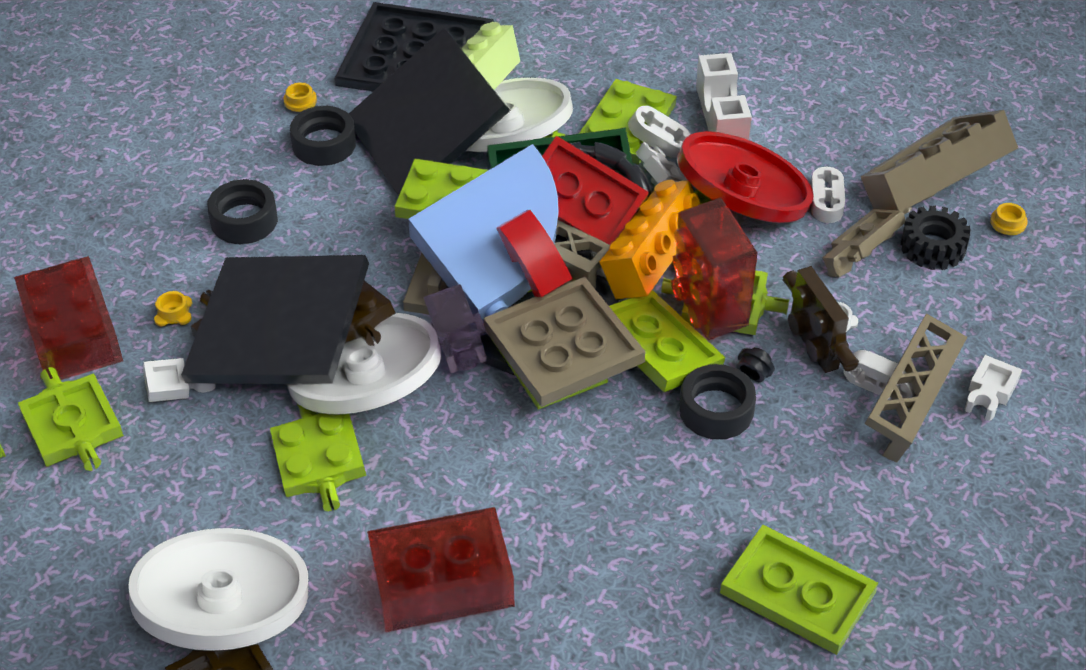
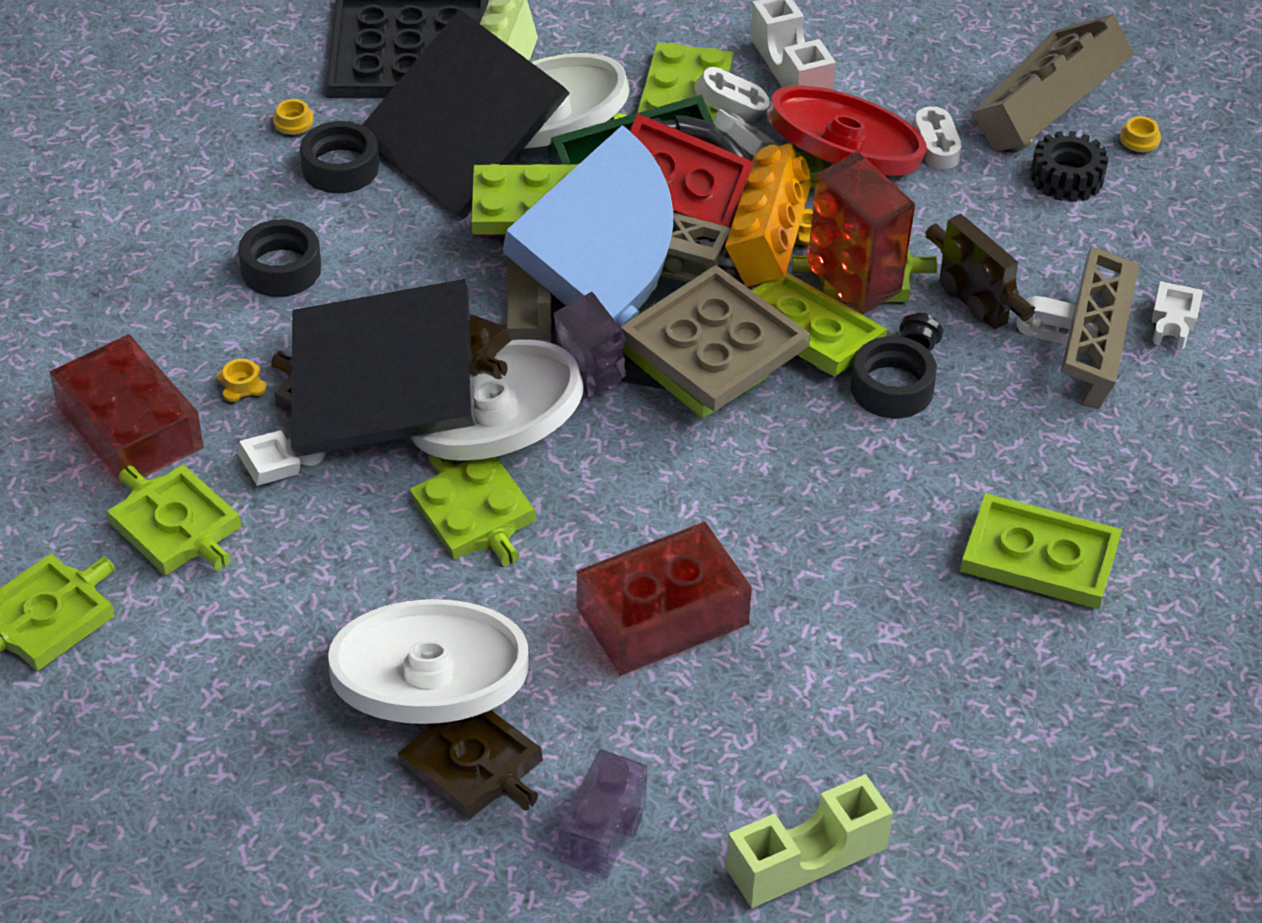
camera: 15 degrees left, 0 degrees up
(535, 251) = (658, 240): red slope -> none
(861, 240) = (992, 179): dark tan hinge -> none

